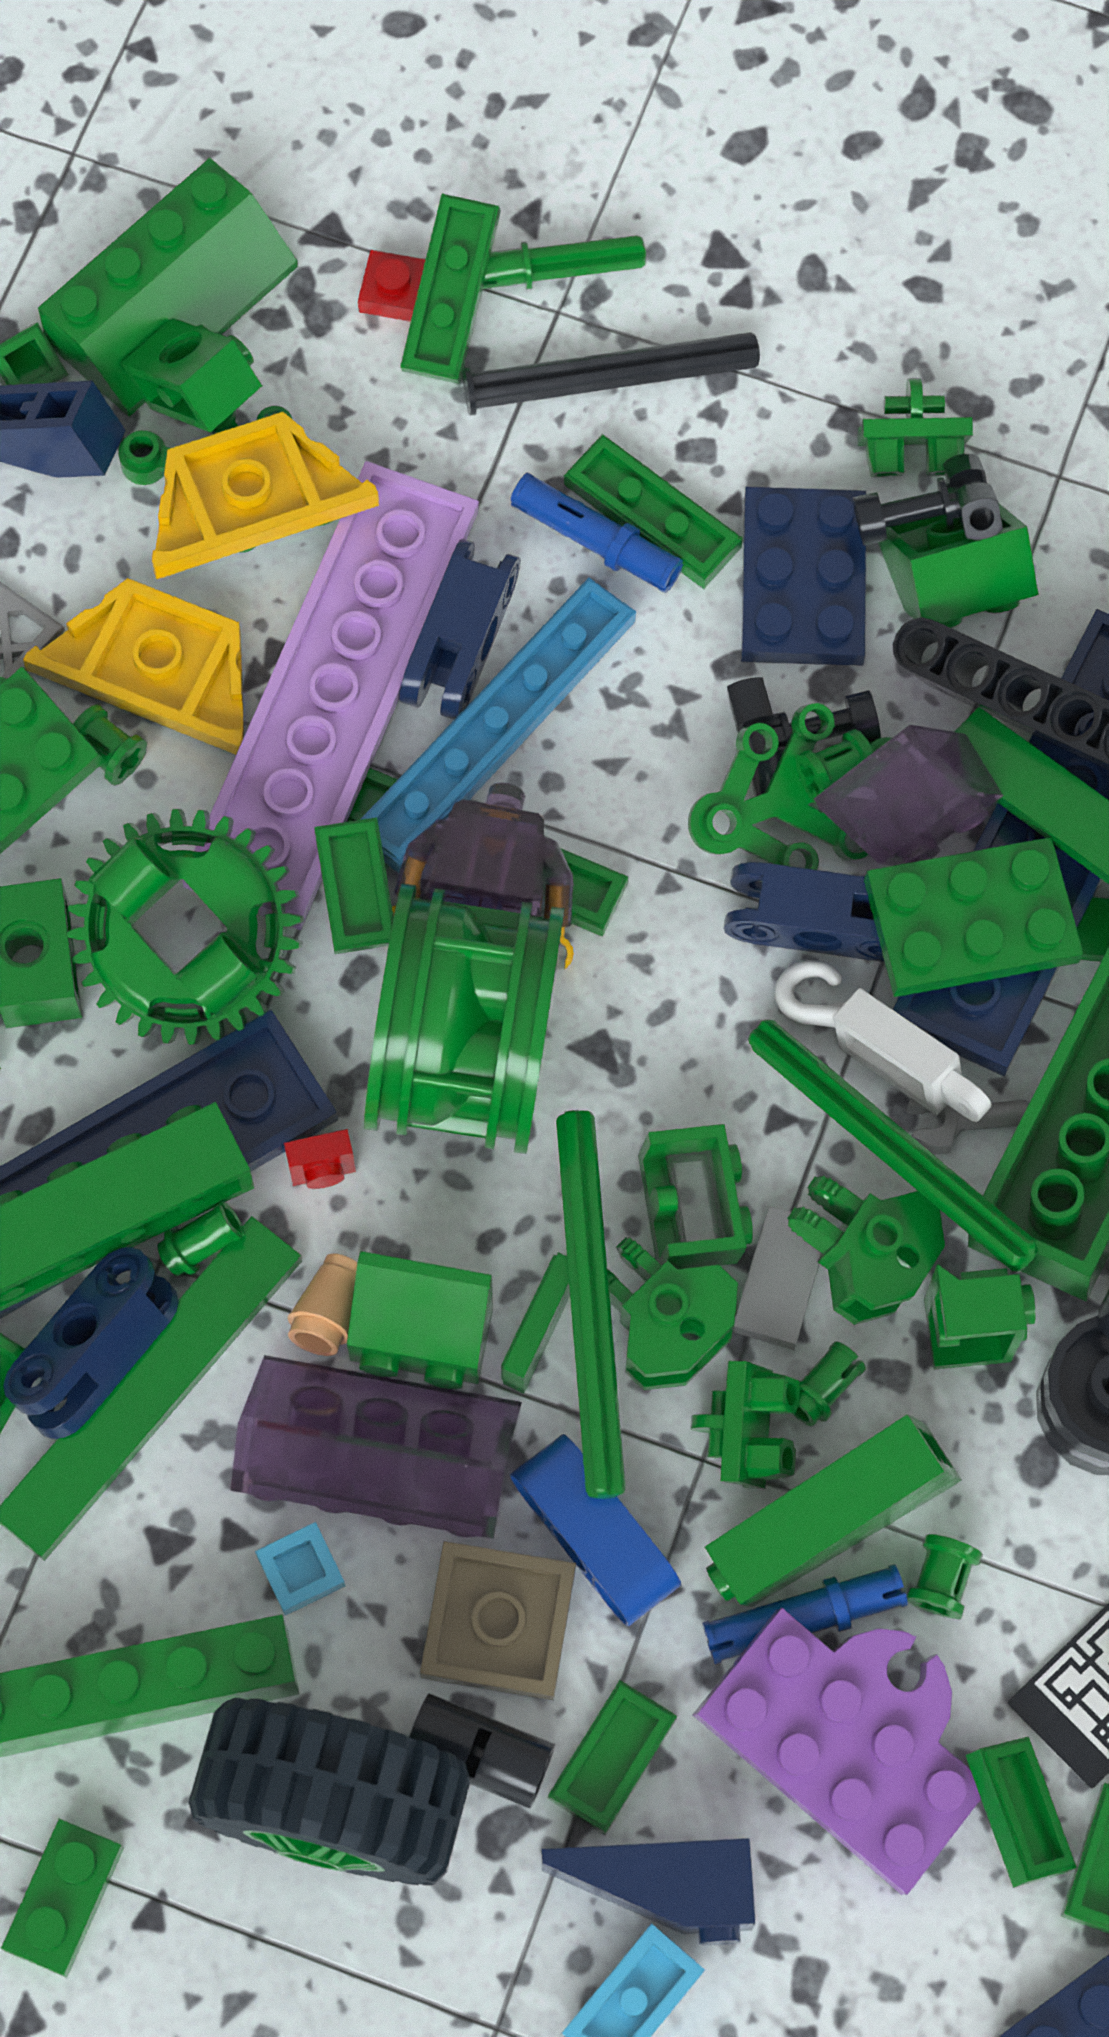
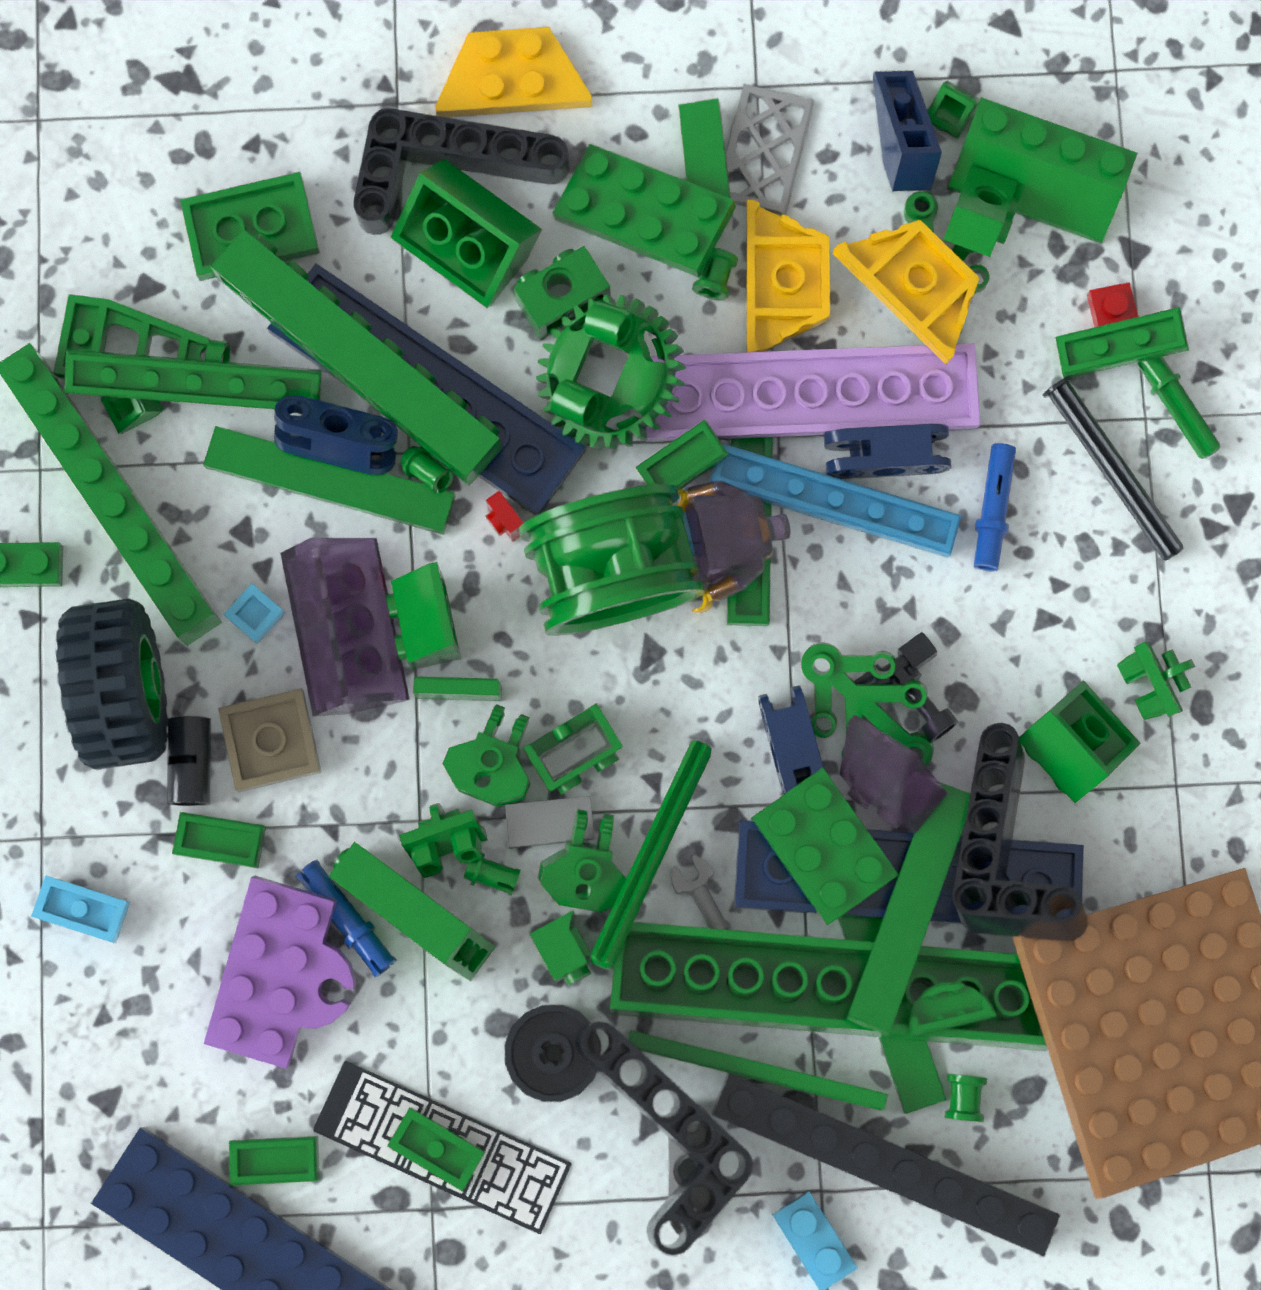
camera: 70 degrees right, 10 degrees up
(324, 1309) = (412, 555): light nougat cone -> none
(590, 1305) = (472, 712): green axle -> none
(595, 1532) = (345, 774): blue beam -> none
(666, 517) = (1028, 536): green tile -> none
(677, 1884) = (154, 904): dark blue slope -> none
(802, 577) = (1026, 649): dark blue plate -> none
(825, 767) = (889, 719): green bush -> none
(885, 1043) = (723, 820): white piece -> none
(944, 1576) = (401, 992): green bush -> none
(961, 496) = (1112, 726): black bar -> none
(1020, 1811) = (277, 1092): green tile -> none

